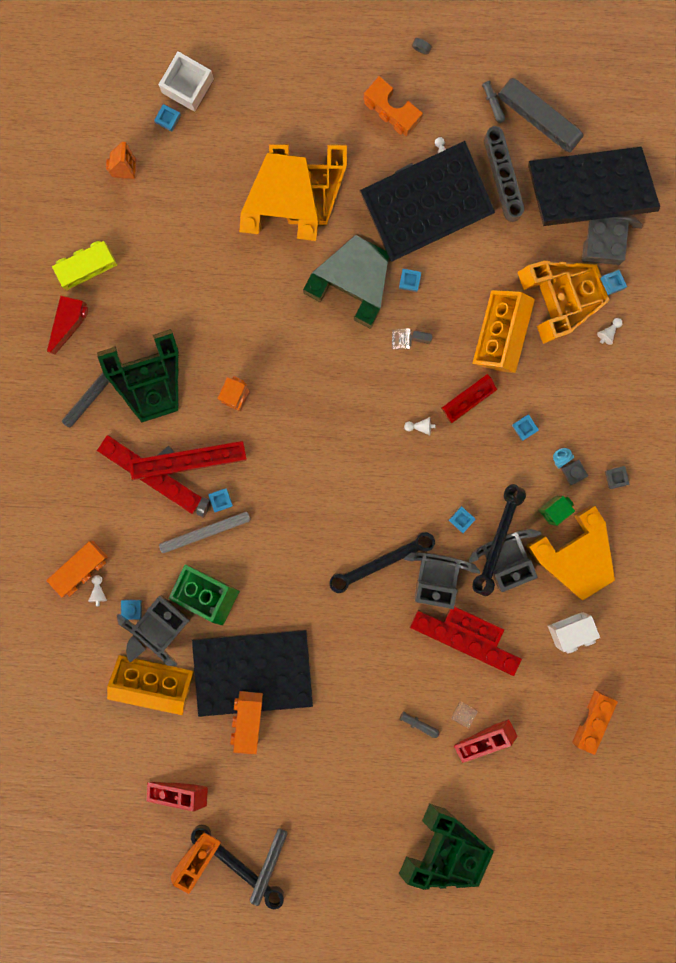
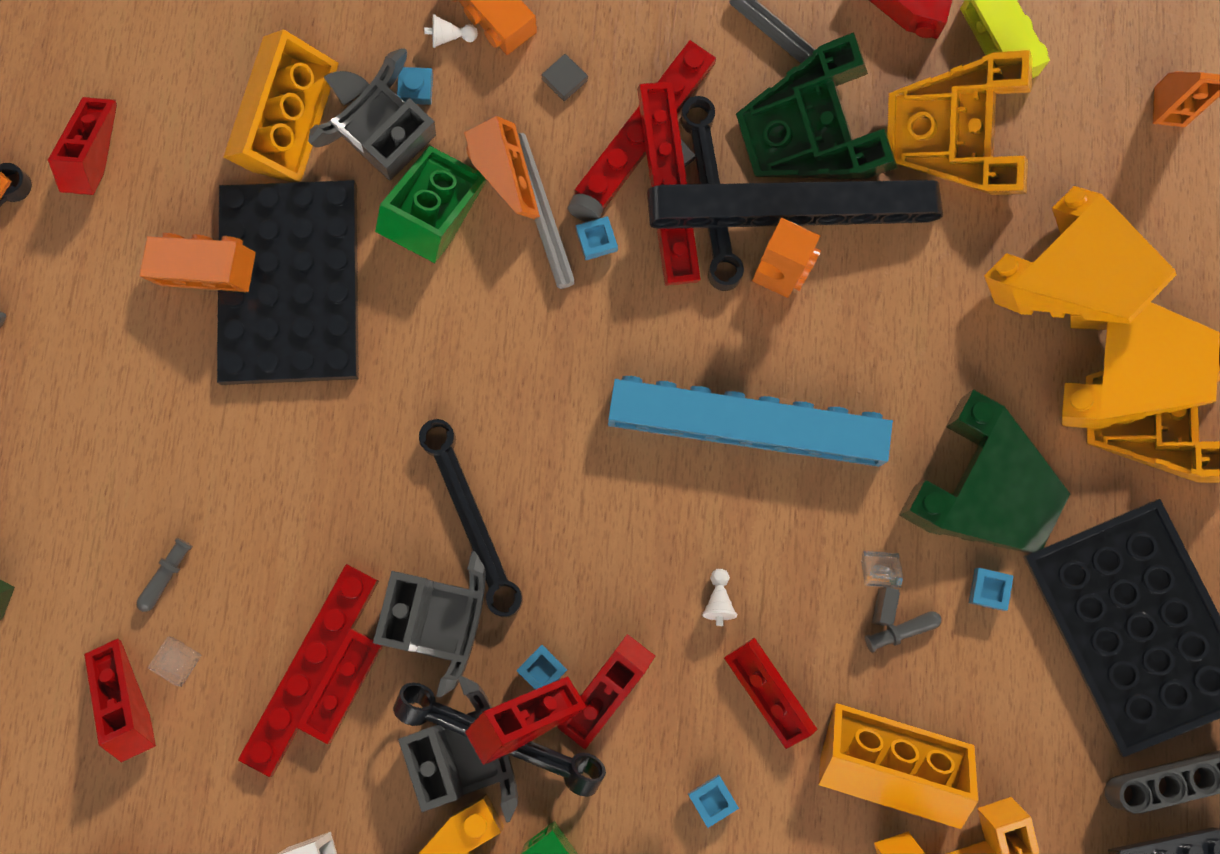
camera: 90 degrees right, 10 degrees down
(122, 522) = (564, 77): none -> dark grey tile
(146, 299) = (949, 123): none -> light orange wedge
(179, 556) = (500, 159): none -> orange slope
(189, 435) = (708, 174): none -> black piece
(198, 388) = (796, 201): none -> black beam
(234, 223) = (1091, 270): none -> light orange wedge
(324, 411) = (750, 422): none -> dark azure brick
(429, 317) = (894, 634): none -> dark grey piece
(471, 484) = (608, 690): none -> red slope
(489, 527) = (523, 719): none -> red slope

